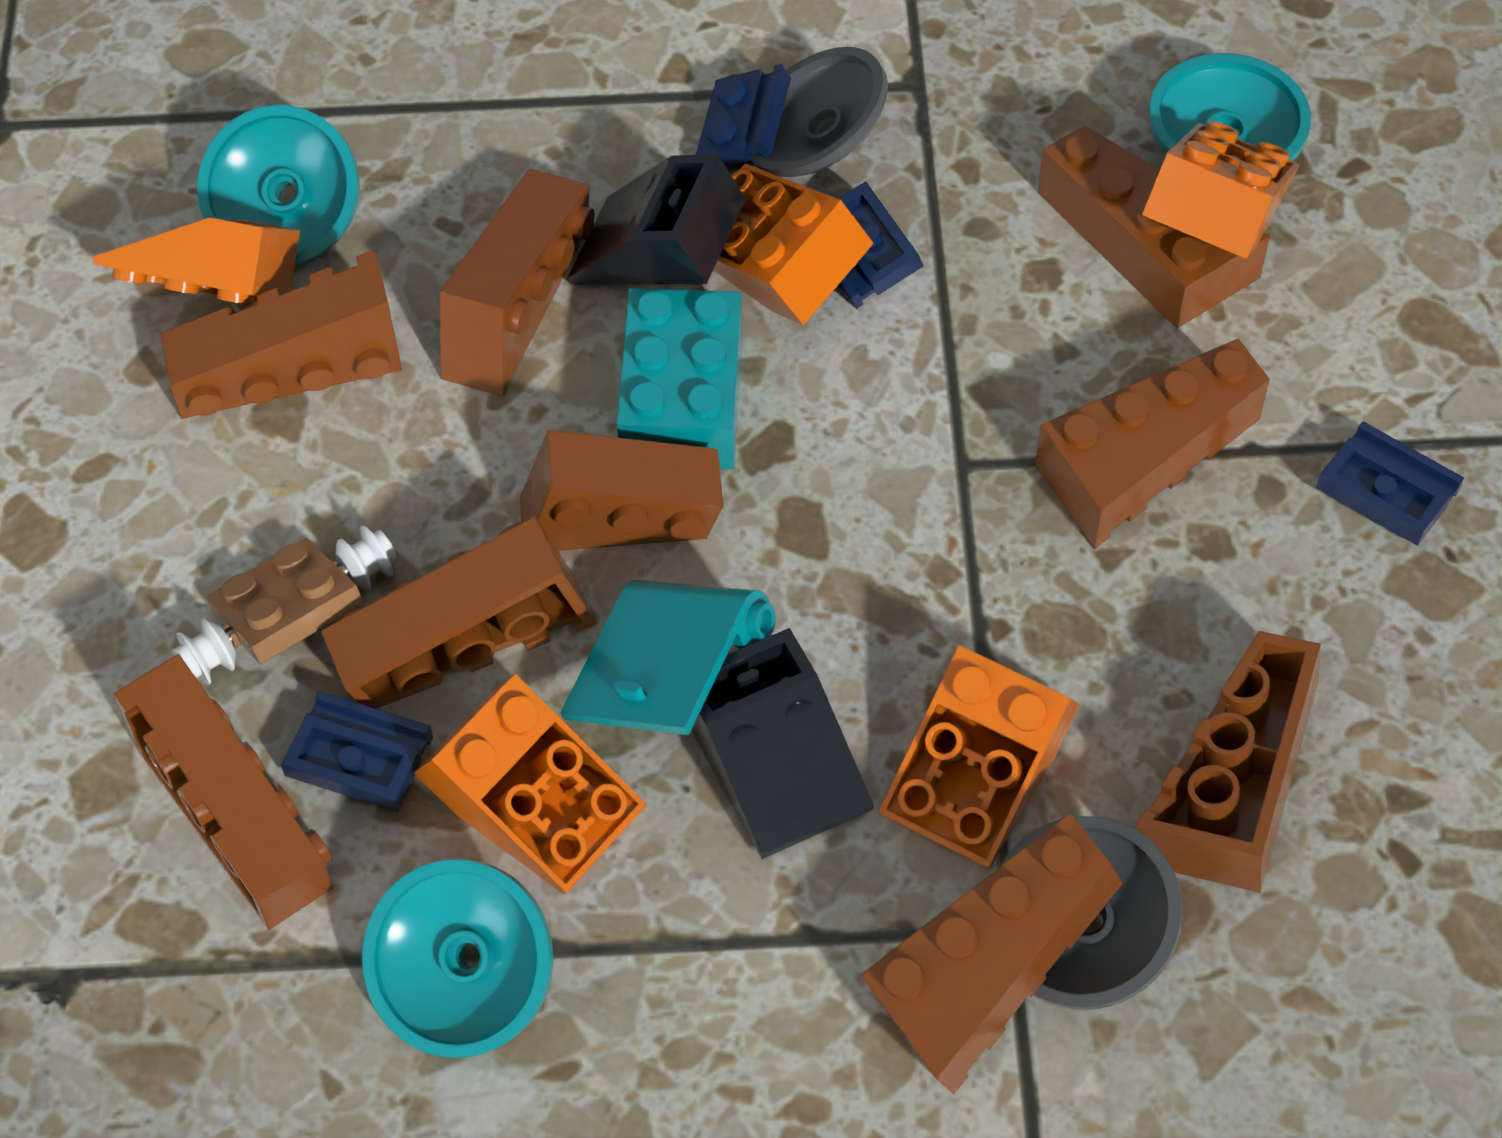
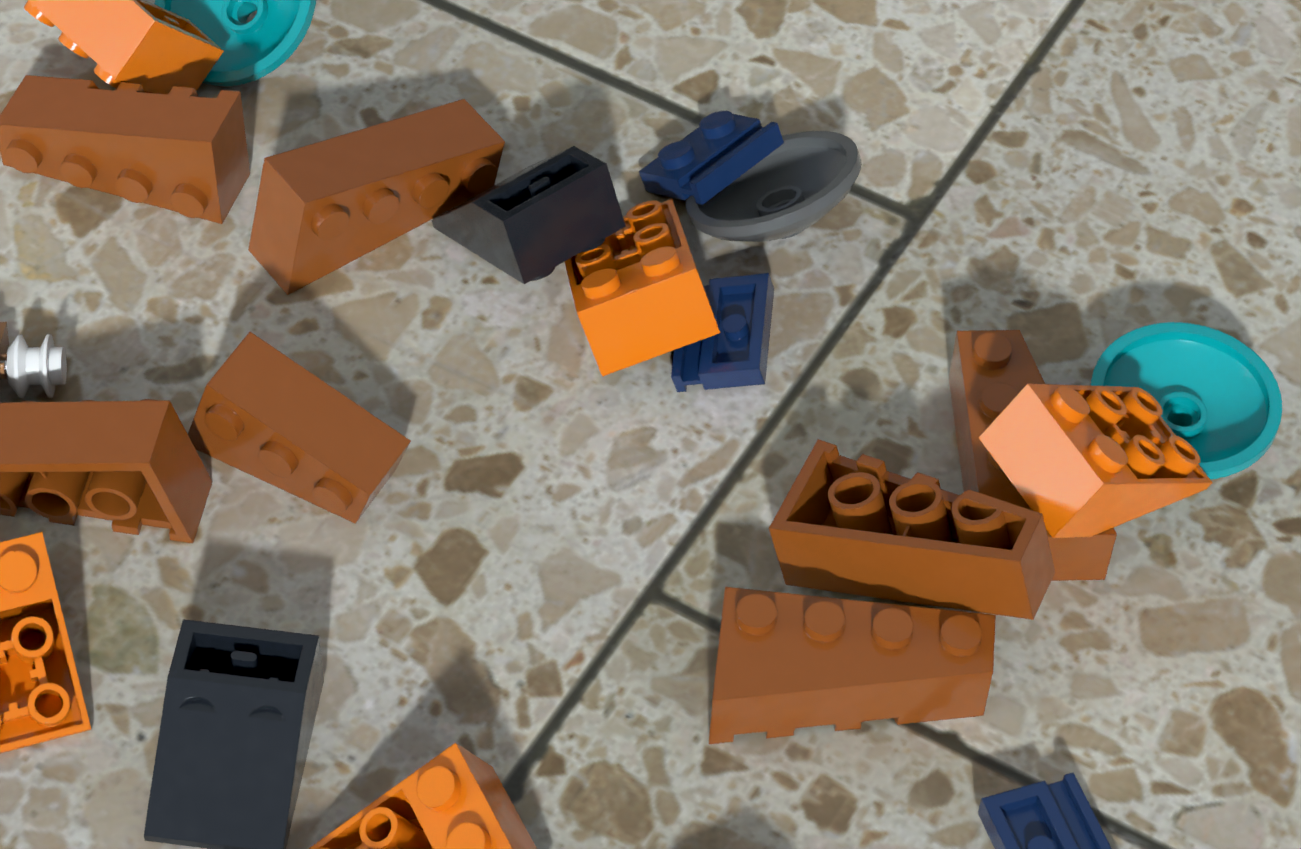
camera: 30 degrees right, 5 degrees down
(664, 653) = (195, 591): teal door -> none
(682, 369) = (447, 358): teal brick -> none
(1139, 317) = (908, 540): none -> dark orange wedge

